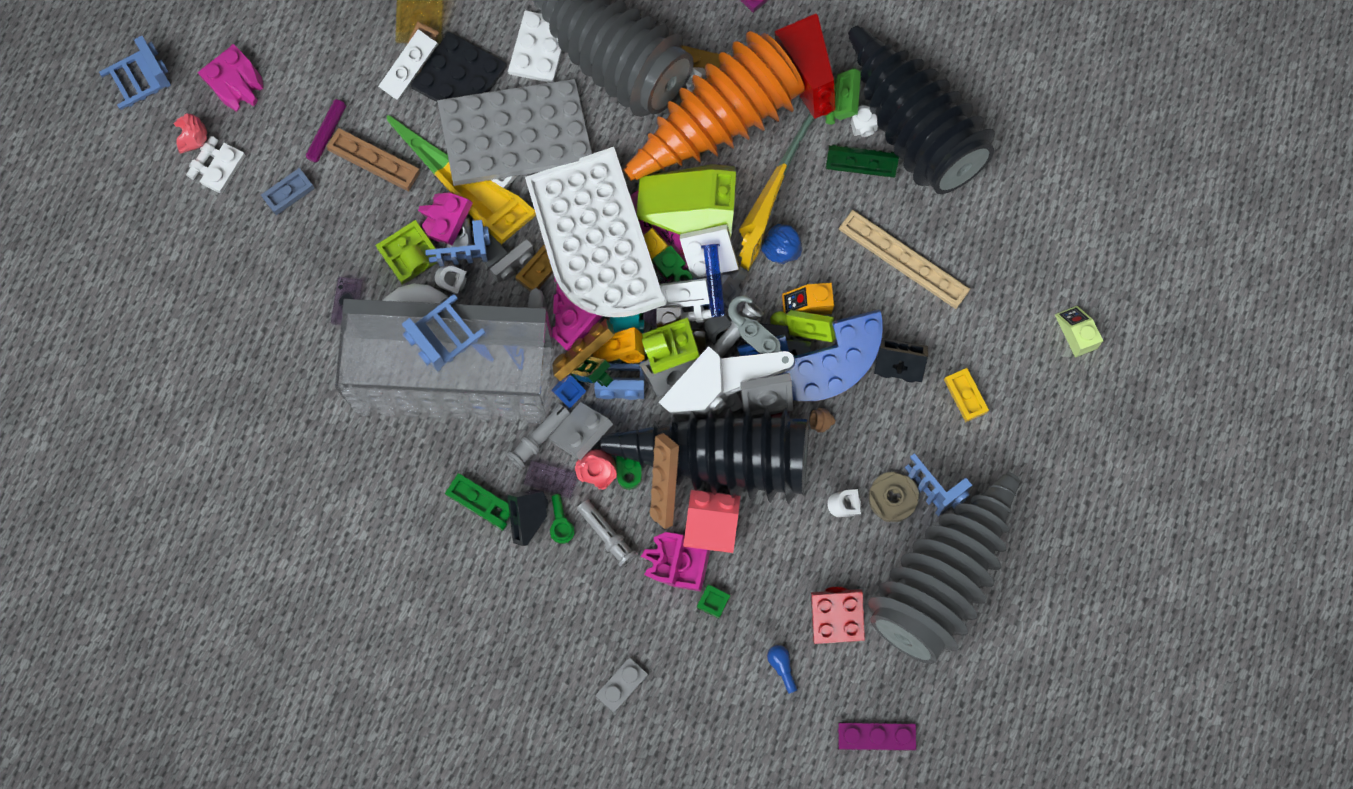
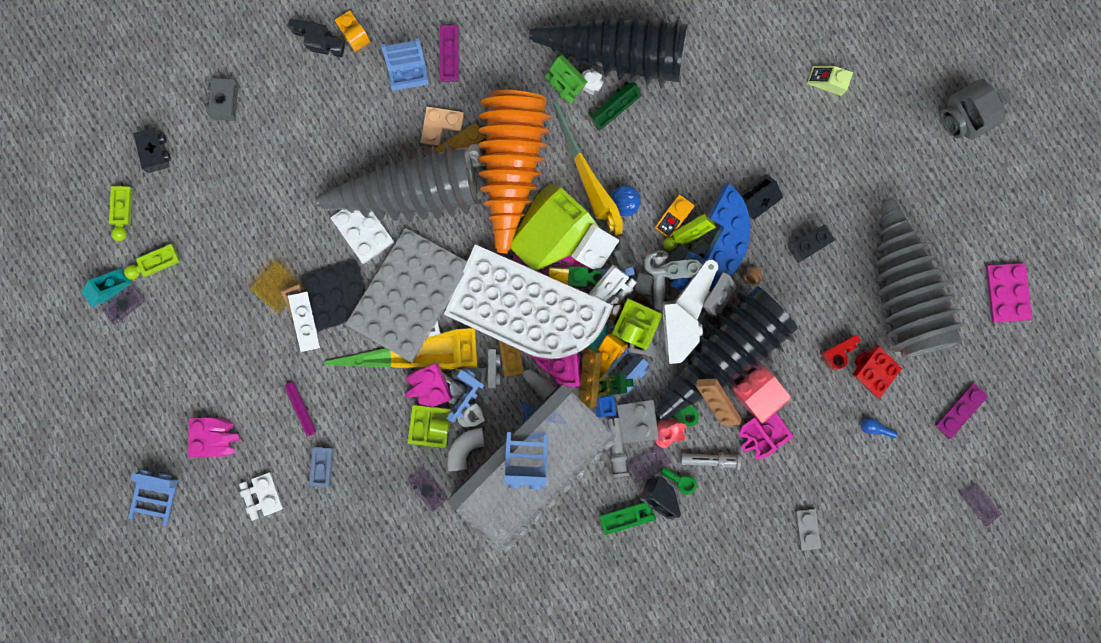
camera: 50 degrees left, 10 degrees up
(193, 133) = (228, 495): coral hair -> none
(373, 159) = (347, 396): medium nougat plate -> none
(699, 24) = (437, 120): none -> light nougat plate
(713, 601) = (806, 434): green plate -> none
(714, 280) = (619, 262): clear blue axle -> none
(807, 51) = (522, 74): red slope -> none
(838, 566) = (838, 350): none -> red plate
(844, 503) = (815, 307): white plate -> none
(887, 509) = (827, 267): dark tan plate -> none
(900, 445) = (811, 243): none -> black brick
(904, 259) = (696, 137): tan tile -> none
(942, 499) = (867, 246): medium blue plate -> none
(966, 395) = (811, 178): yellow plate -> none
(1039, 682) = (1008, 292): none -> dark pink plate
(1188, 482) = (980, 104): none -> dark grey piece

